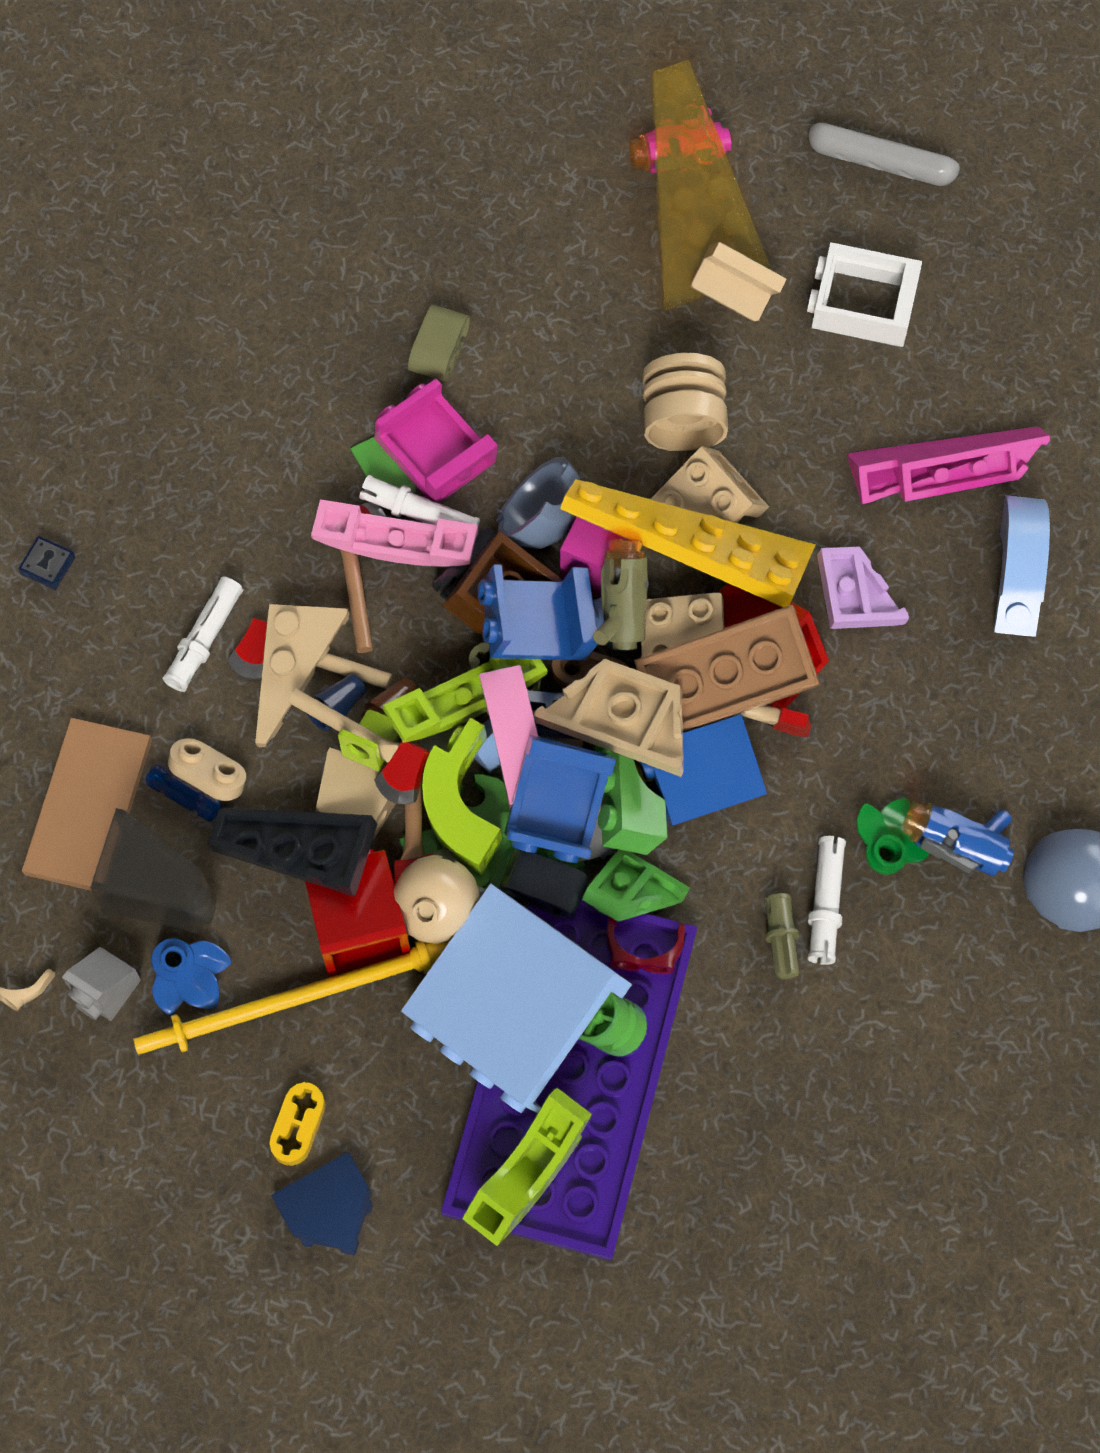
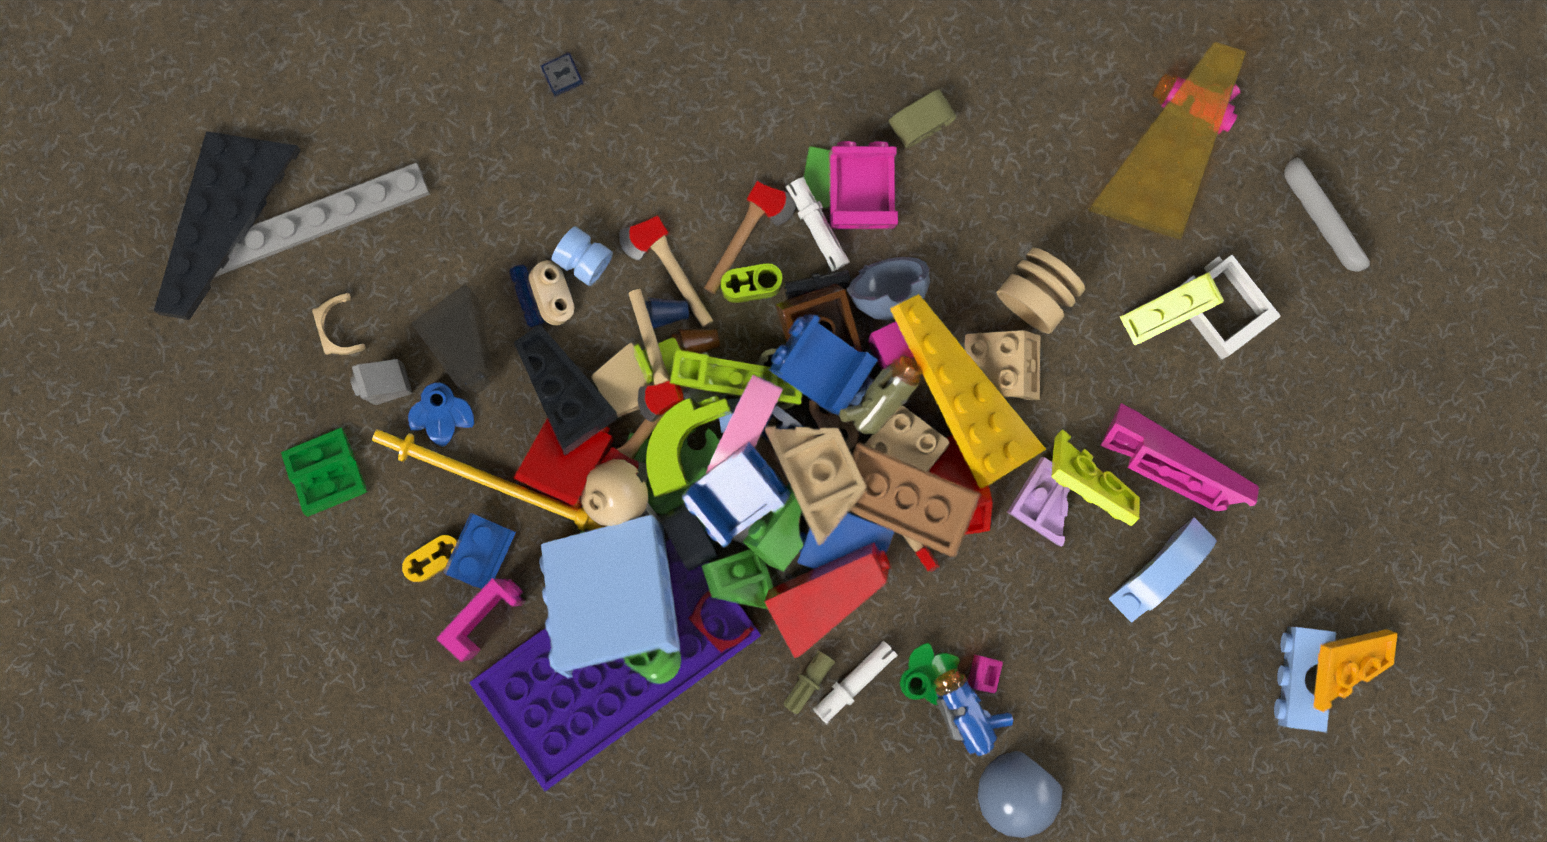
camera: 40 degrees right, 15 degrees up
(91, 779) = (465, 253): medium nougat tile -> none
(110, 1128) = (324, 472): none -> green slope
(195, 647) = (607, 206): white pin -> none
(209, 708) = (585, 258): none -> light blue wheel
(293, 647) = (663, 257): tan wing -> none
(327, 1205) = (410, 622): dark blue slope -> none
(342, 1075) = (479, 551): none -> blue plate
(390, 1172) = (456, 634): none -> dark pink panel
(394, 539) = (784, 232): bright pink slope -> none
(408, 614) = (742, 276): none -> lime beam
(529, 1169) = (531, 705): lime arch -> none
(728, 832) = (824, 596): none -> slope
(736, 281) = (1147, 231): tan panel -> none
(818, 329) = (1172, 308): none -> neon yellow tile
(891, 540) = (1082, 476): none -> neon yellow wing
(942, 790) = (985, 674): none -> dark pink slope

